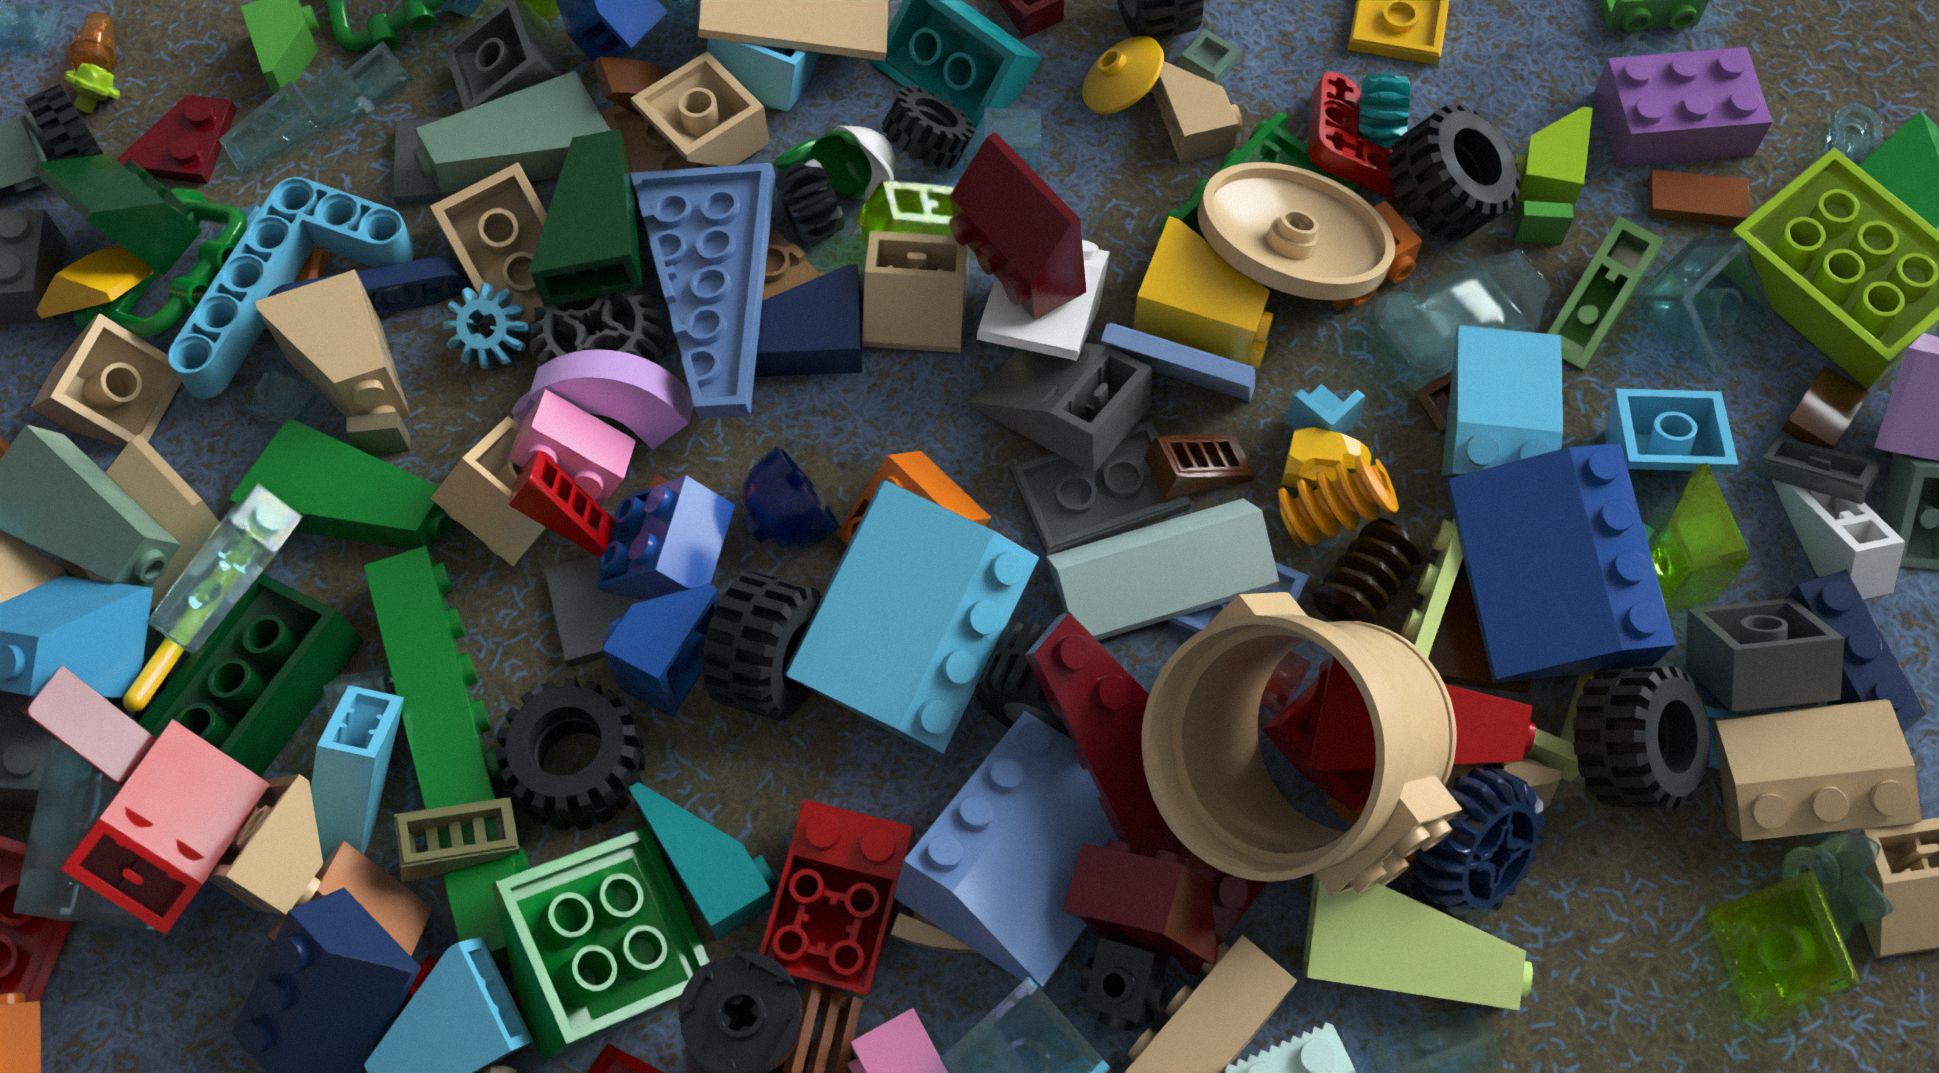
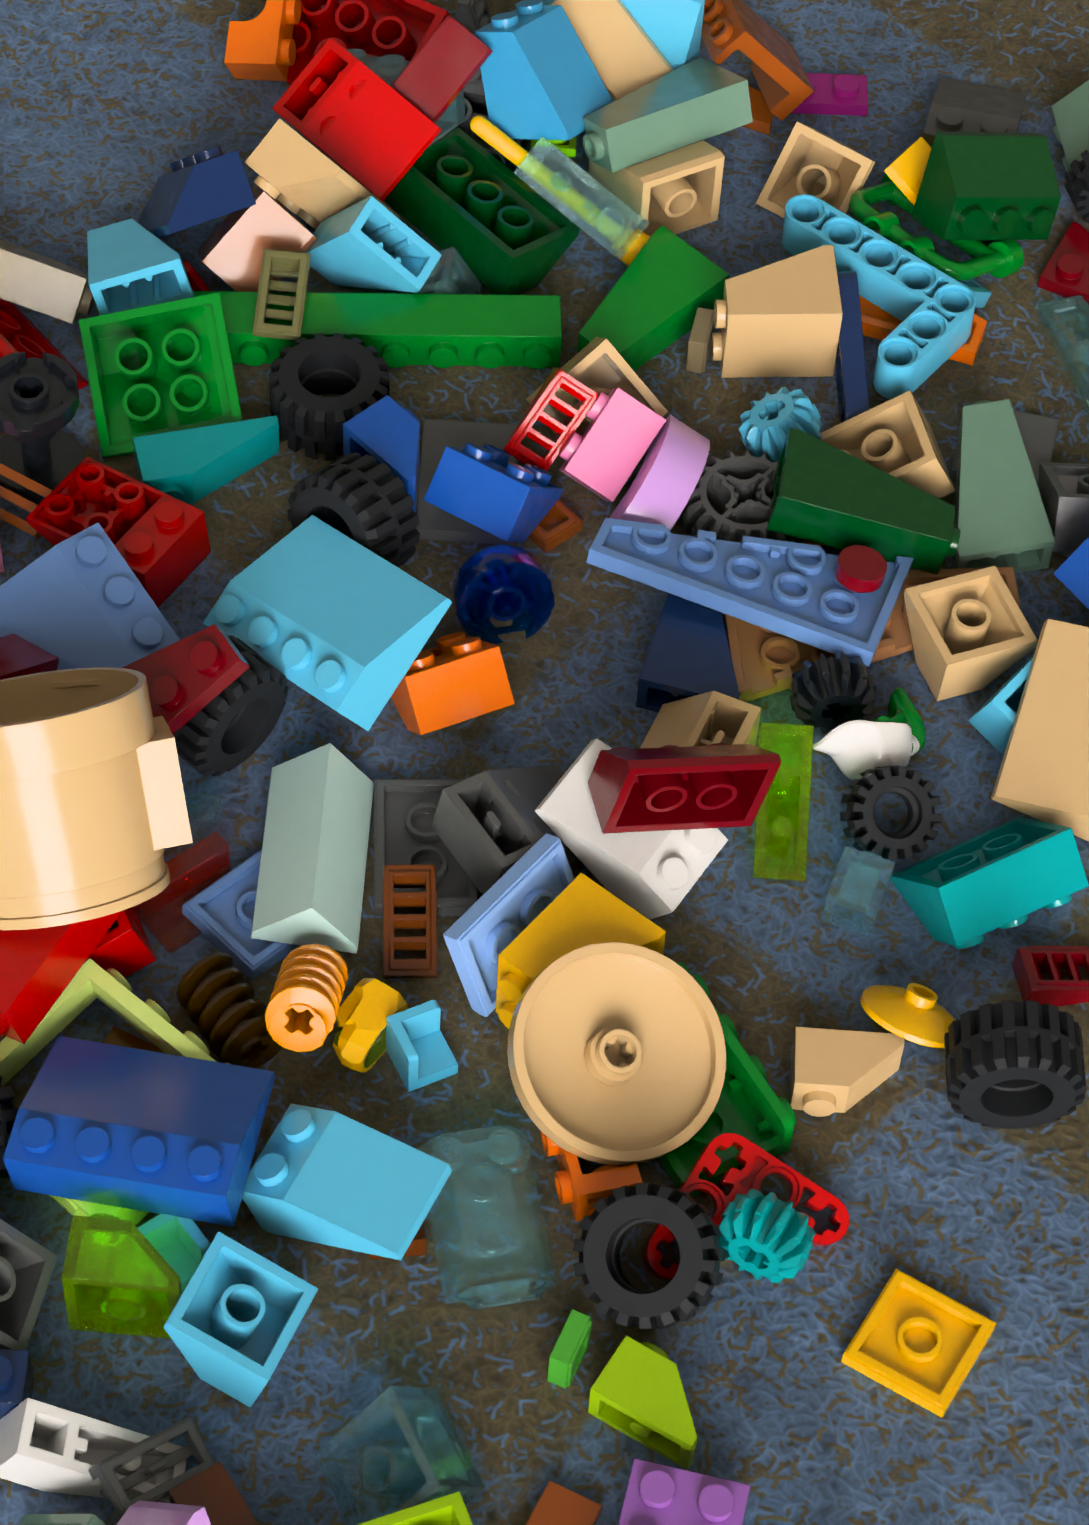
camera: 105 degrees right, 10 degrees down
(625, 78) = (1029, 579): reddish brown slope -> none
(674, 194) = (860, 569): none -> dark red tile
(1209, 56) = (923, 1125): sand green tile -> none
(1605, 290) = (470, 1377): bright green slope -> none

